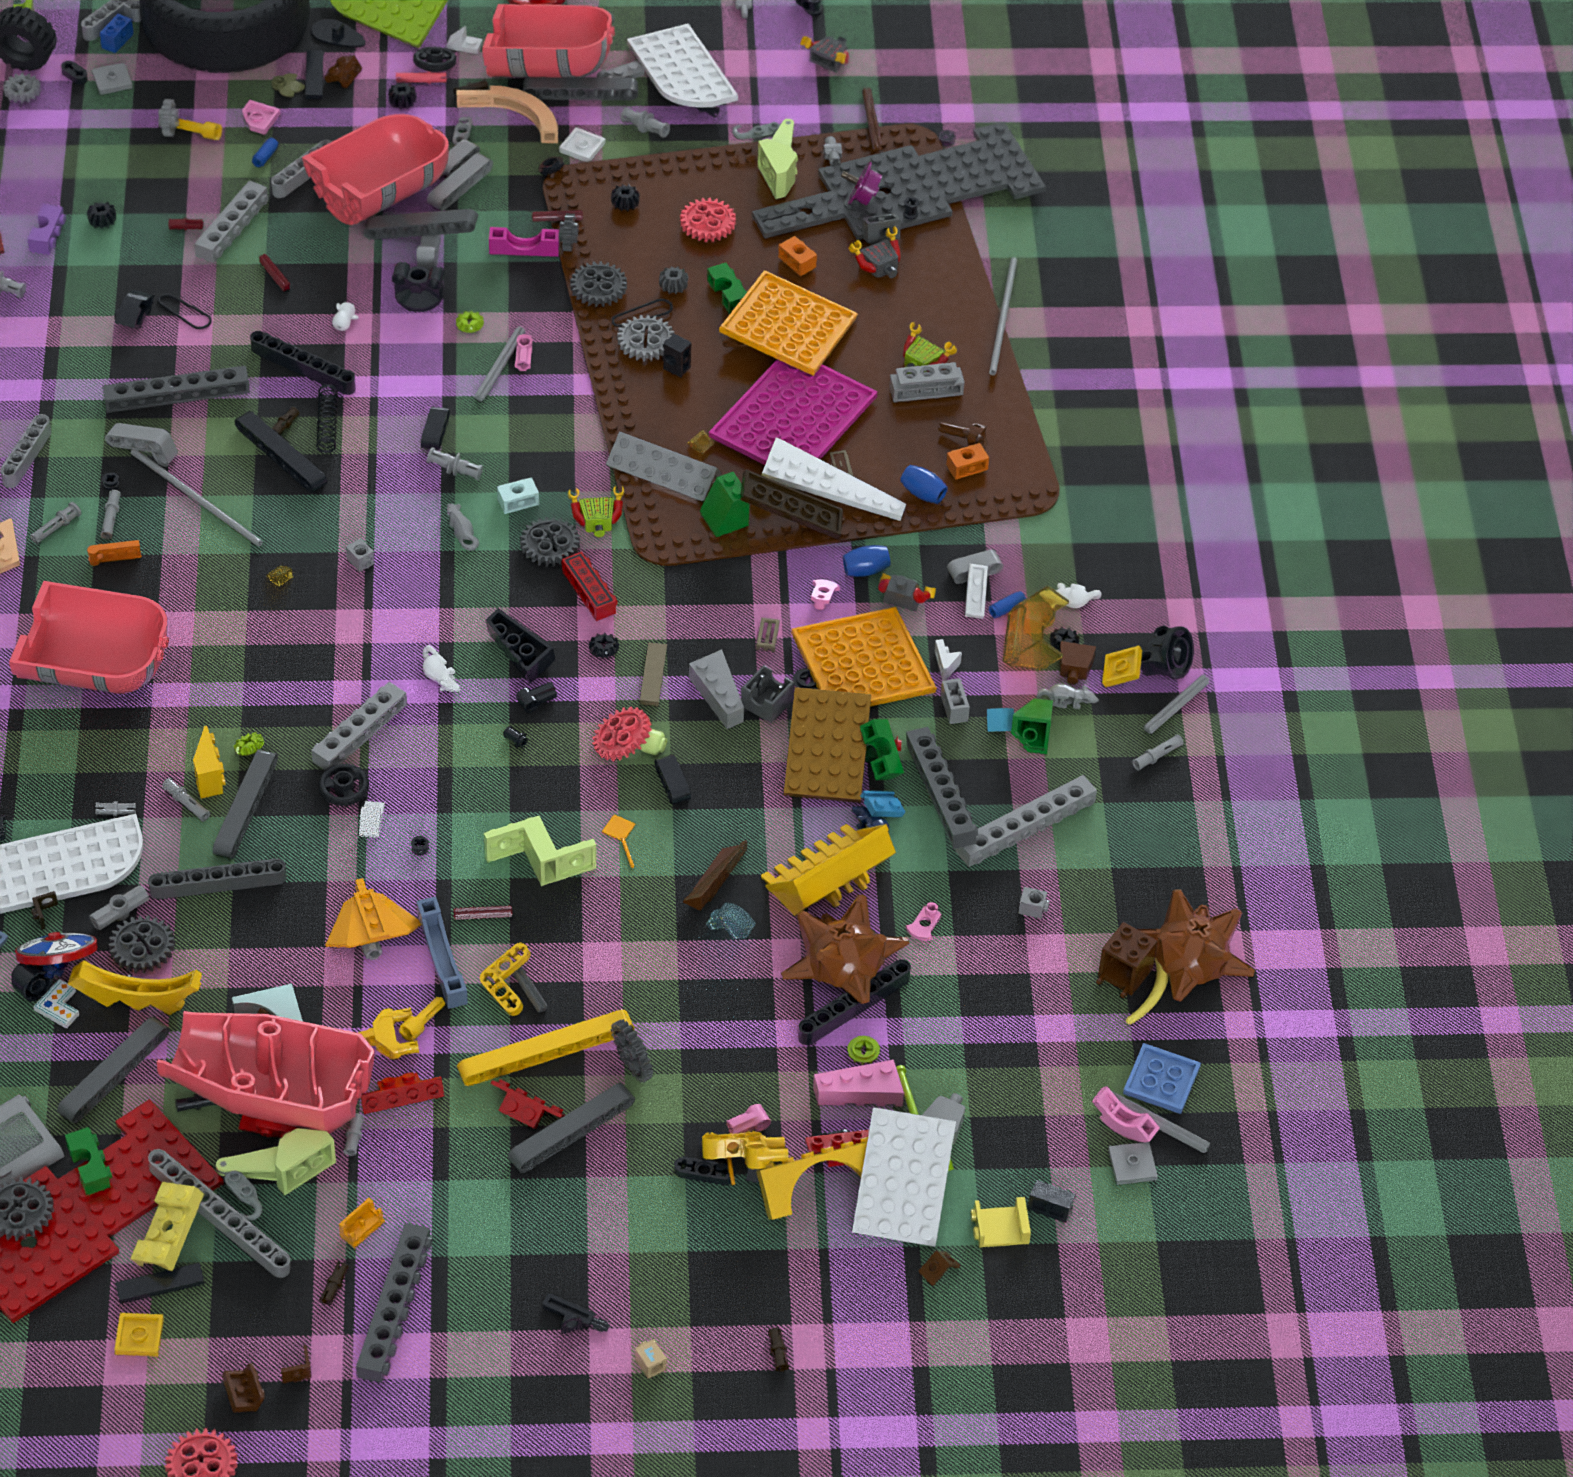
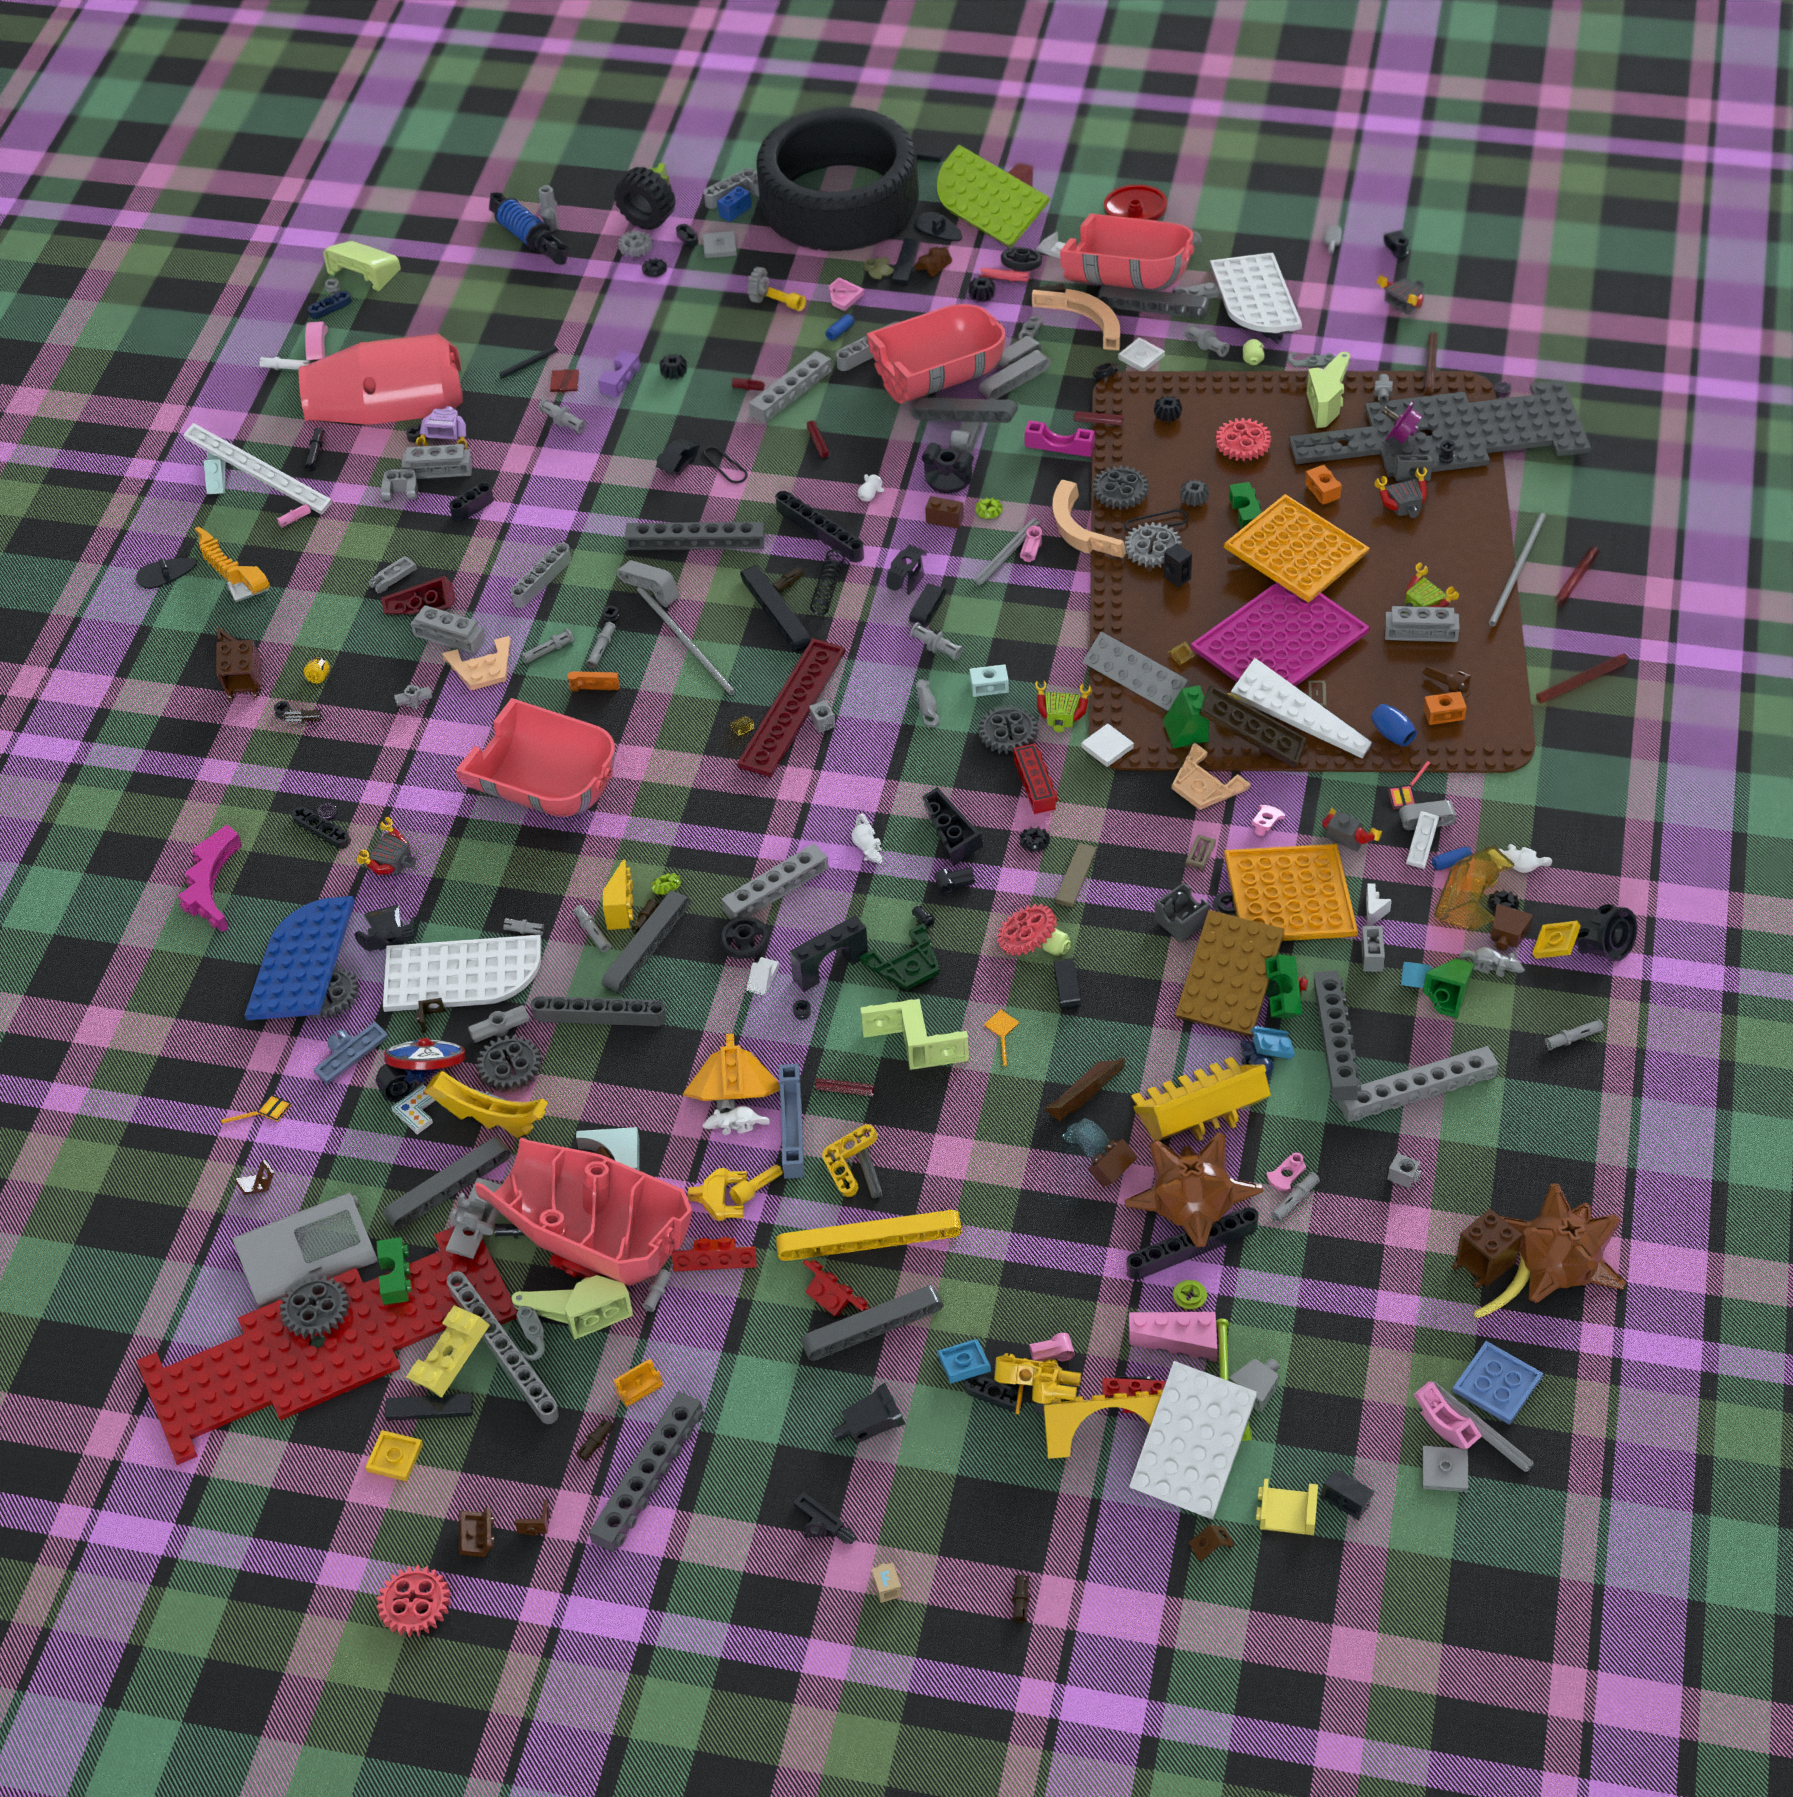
camera: 20 degrees right, 0 degrees up
(50, 115) = (649, 267): none -> black gear
(148, 1097) = (469, 1217): none -> light grey piece
(236, 778) = (644, 914): none -> dark brown pin
(325, 550) = (791, 708): none -> dark red plate
(387, 959) = (739, 1118): none -> white animal
(400, 398) = (900, 568): none -> black piece
(427, 331) = (944, 512): none -> reddish brown brick
(450, 768) = (806, 958): none -> black arch
(513, 789) = (909, 967): none -> dark green wing
(564, 337) = (1075, 535): none -> light nougat arch
(568, 232) = (1103, 434): dark grey gear -> none
(595, 1212) = (870, 1416): none -> black piece
(632, 1051) = (949, 1255): dark grey gear -> none
(652, 543) = (1107, 745): none -> white tile
(668, 1147) = (963, 1361): none -> dark azure plate
(694, 128) = (1253, 352): none -> yellowish green head
(717, 687) = (1134, 895): light grey wedge -> none
(752, 570) = (1200, 786): none -> light nougat wing
(761, 939) = (1112, 1162): none -> reddish brown brick
(866, 560) = (1317, 793): blue piece -> none
(942, 937) = (1300, 1191): none -> light grey pin
(947, 551) = (1404, 794): none -> piece
(1058, 313) = (1574, 574): none -> clear red piece
(1087, 414) = (1581, 678): none -> clear red axle
(1176, 704) = (1606, 987): light grey axle -> none

